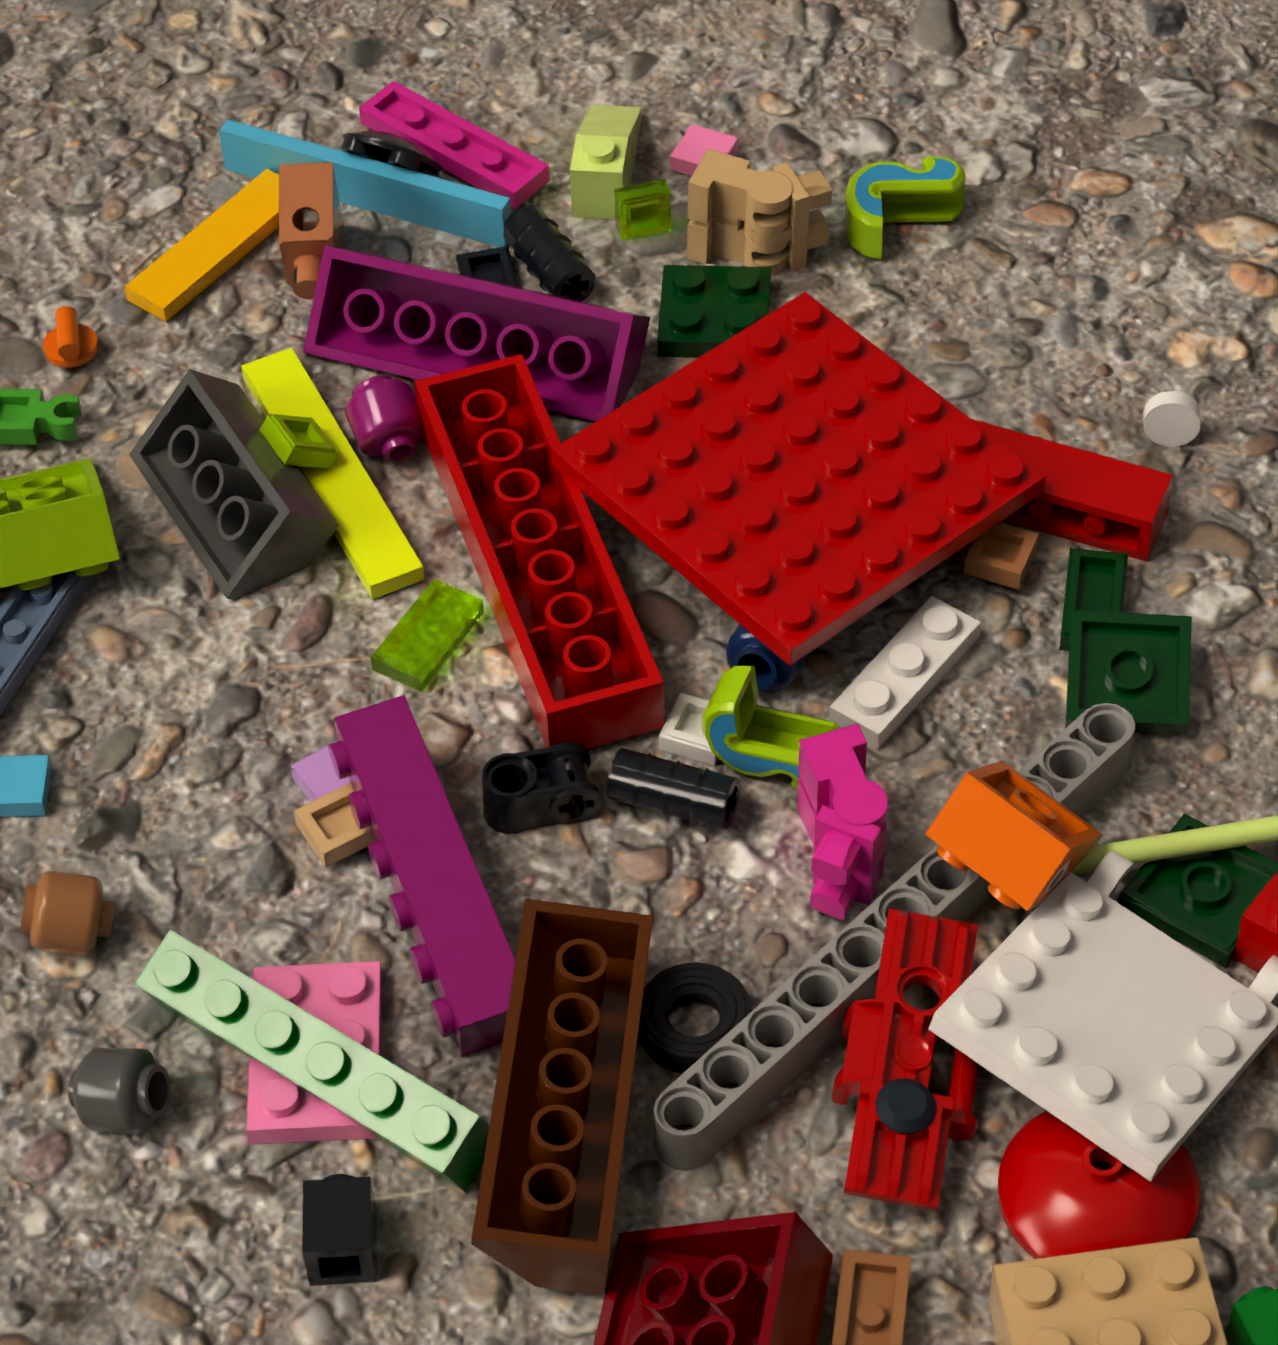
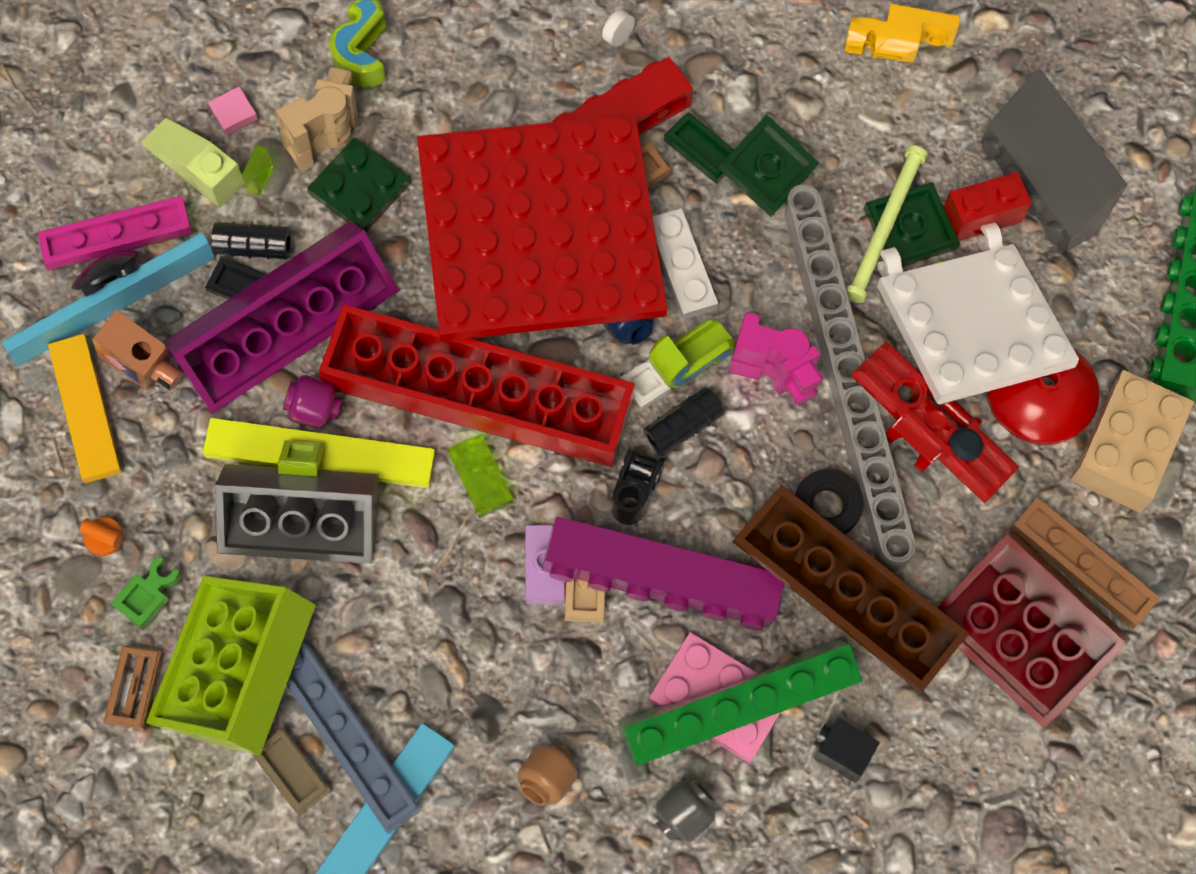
camera: 60 degrees left, 20 degrees up
(1011, 835) = (854, 288): orange slope -> none

